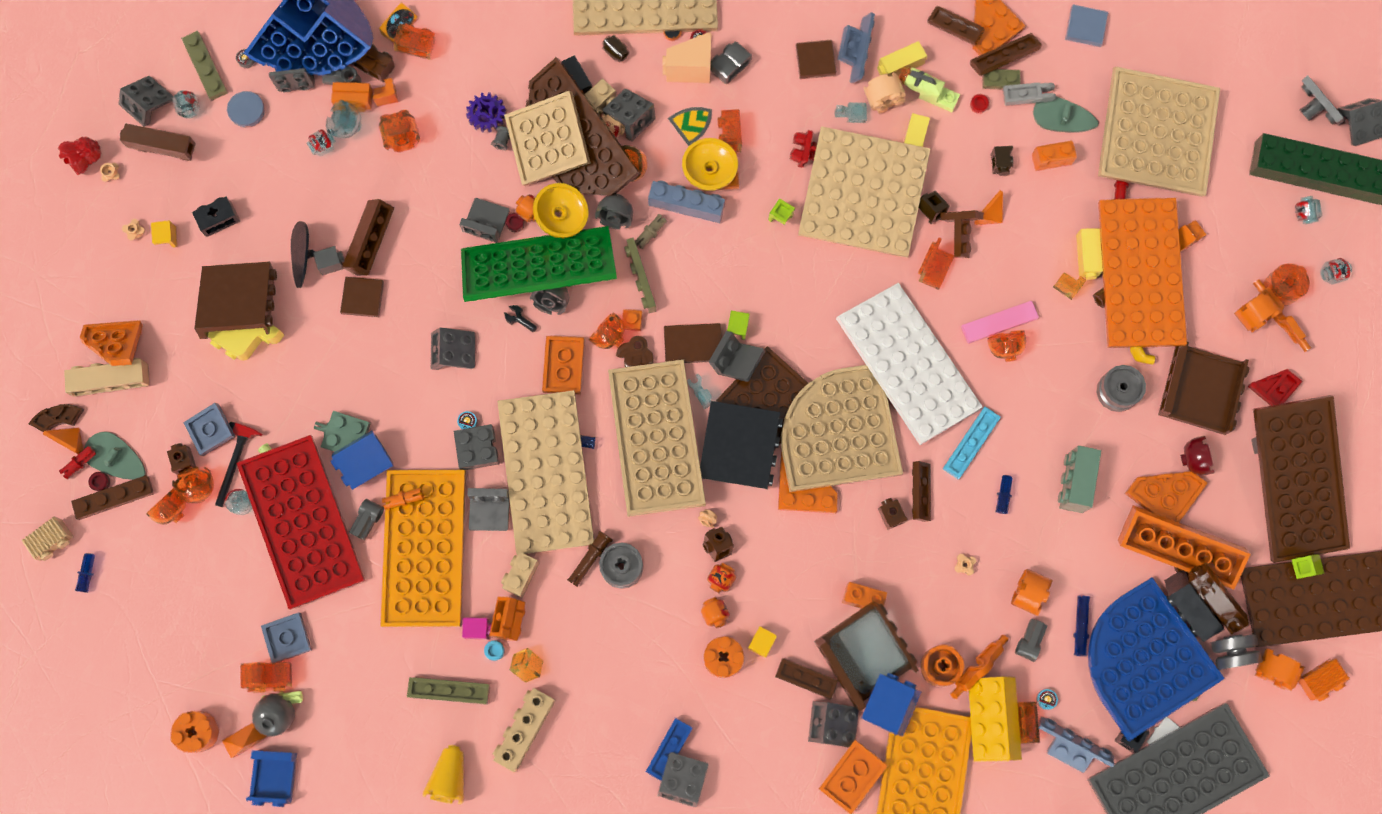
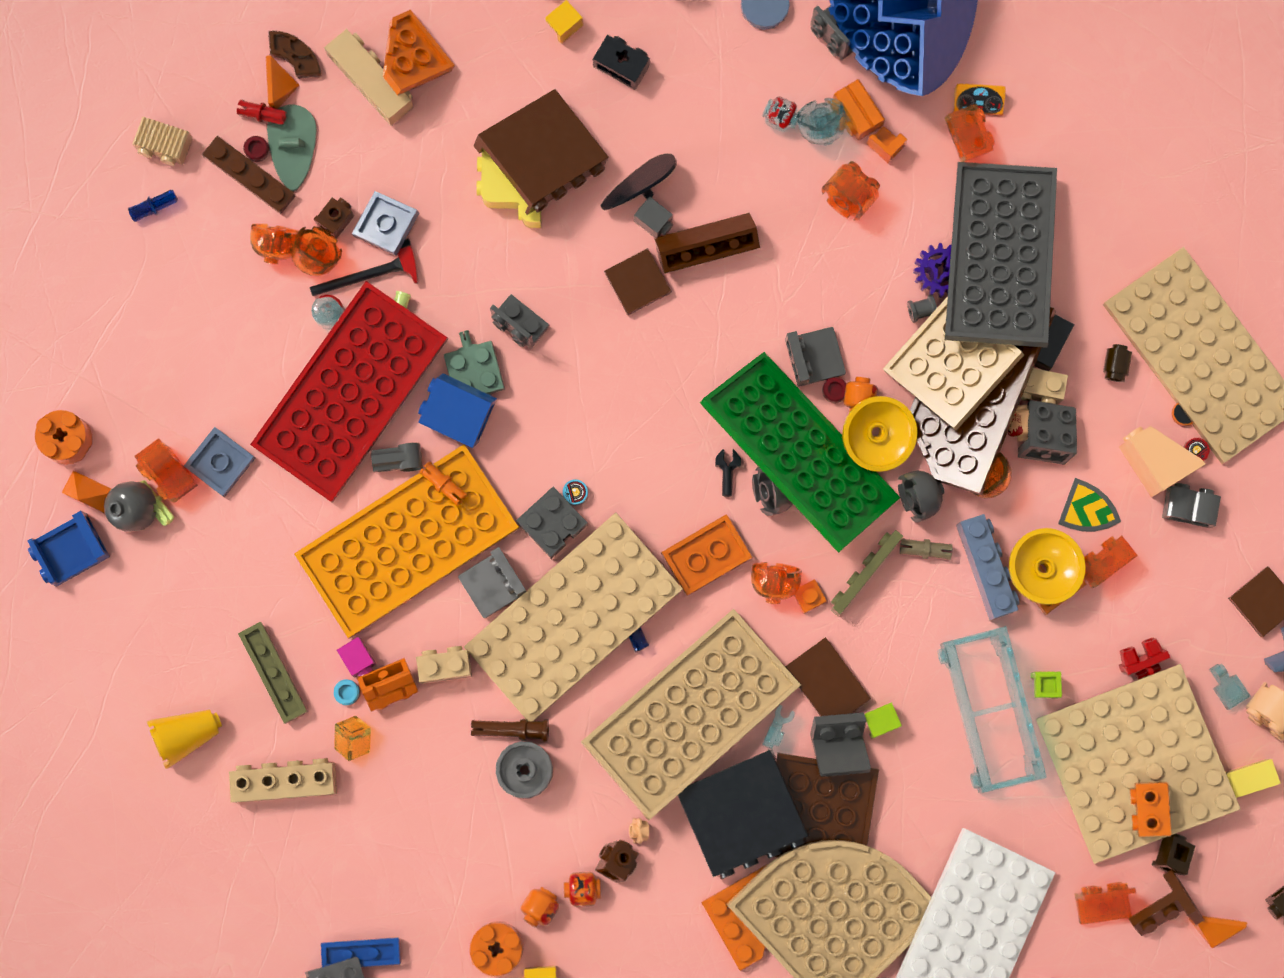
camera: 55 degrees right, 5 degrees up
(333, 386) = (520, 321): none -> dark grey bracket
(341, 75) = (871, 83): dark grey piece -> none
(376, 63) = (914, 112): reddish brown brick -> none
(452, 348) = (644, 421): flat silver bracket -> none
(502, 67) = (1001, 254): none -> dark grey plate
(635, 356) = (769, 628): reddish brown plate -> none
(739, 222) = (1033, 762): none -> clear light blue windscreen
(897, 198) = (1152, 809): none -> orange brick

